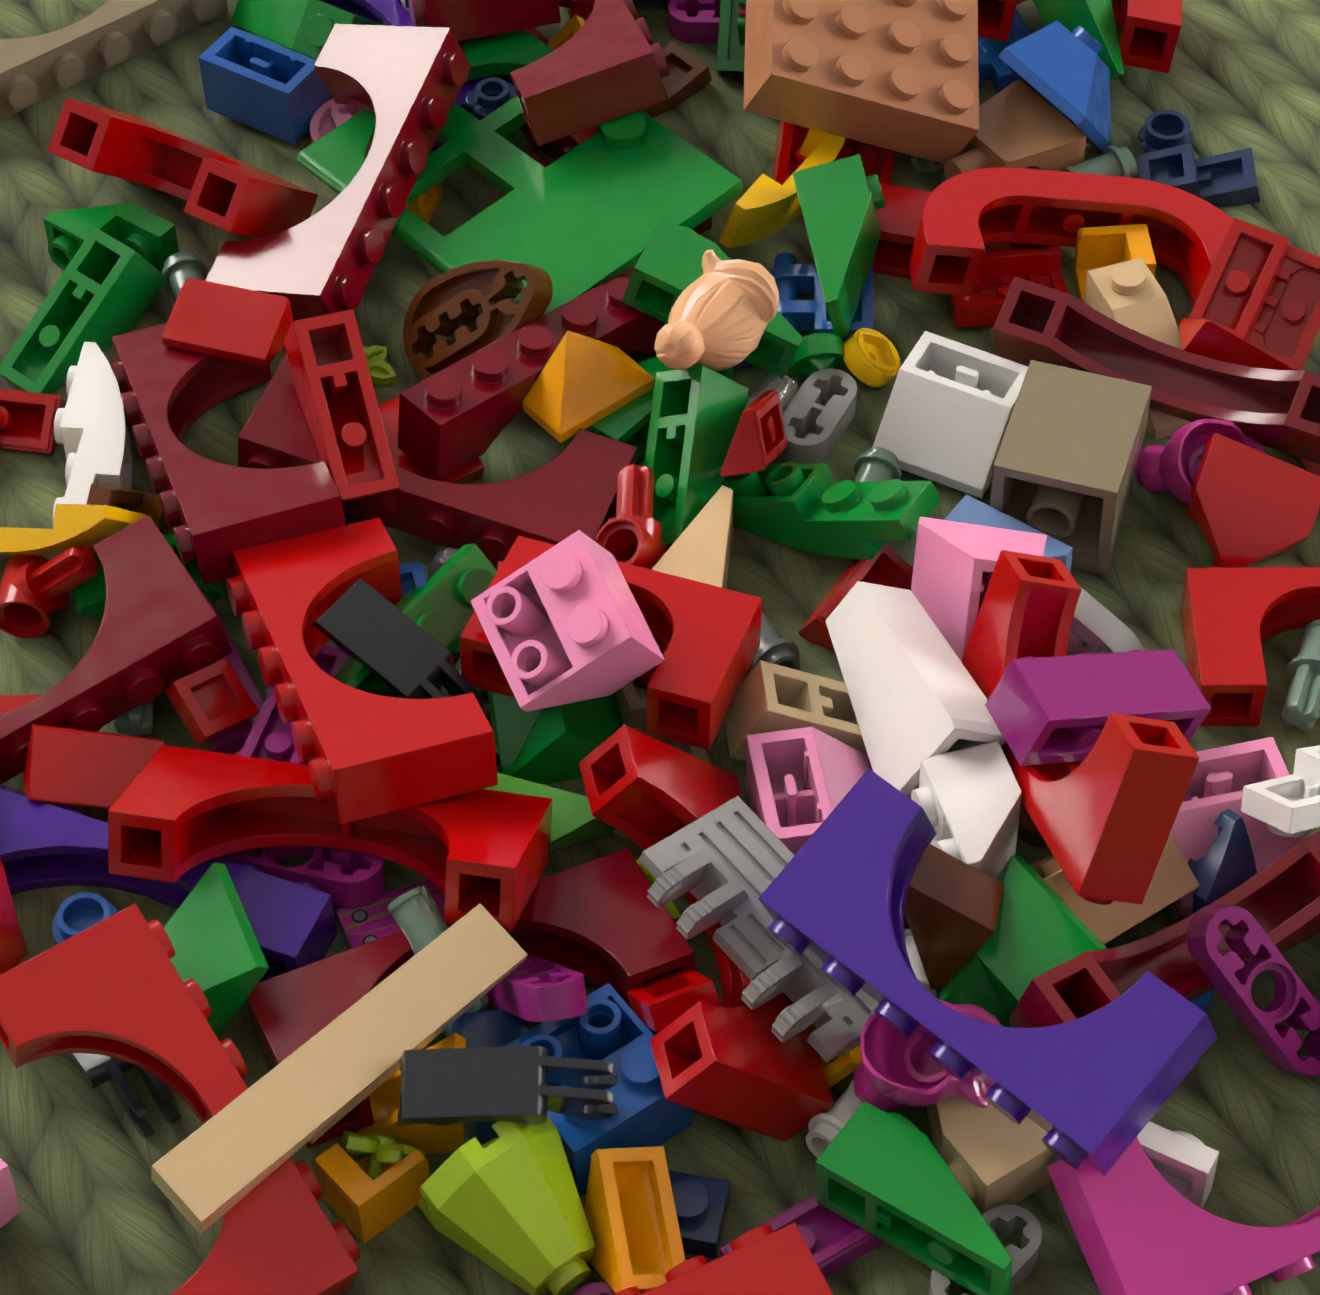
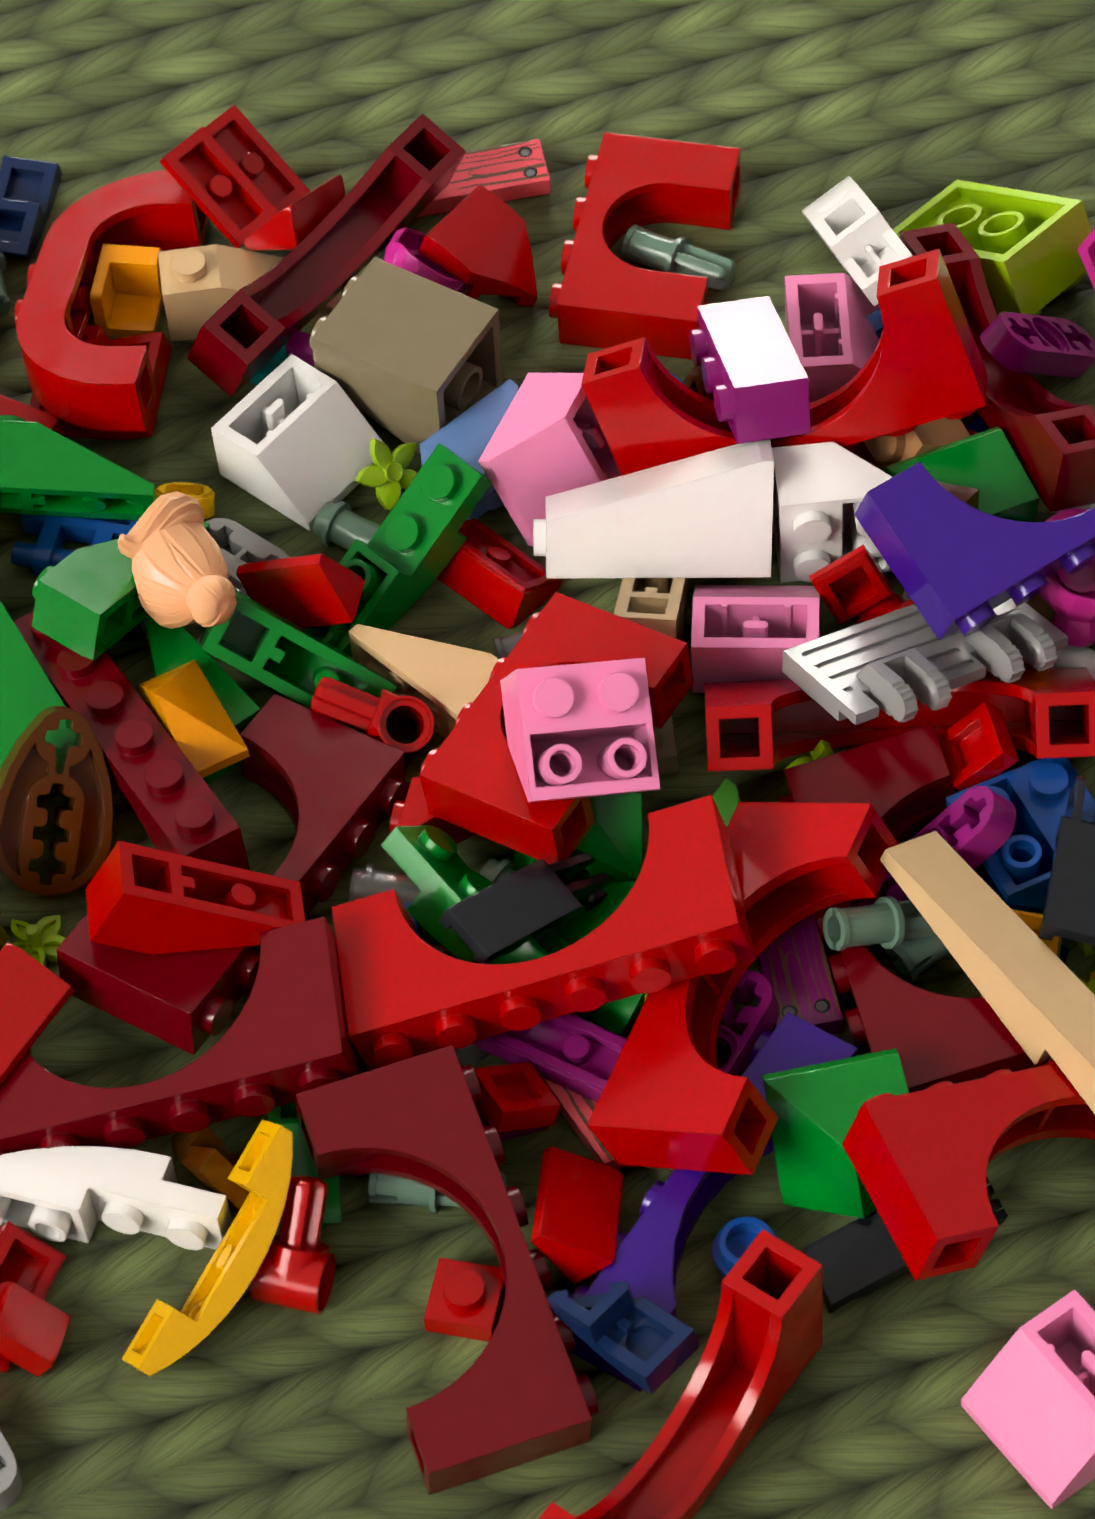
camera: 75 degrees left, 5 degrees up
(952, 487) = (389, 473): none -> lime plant

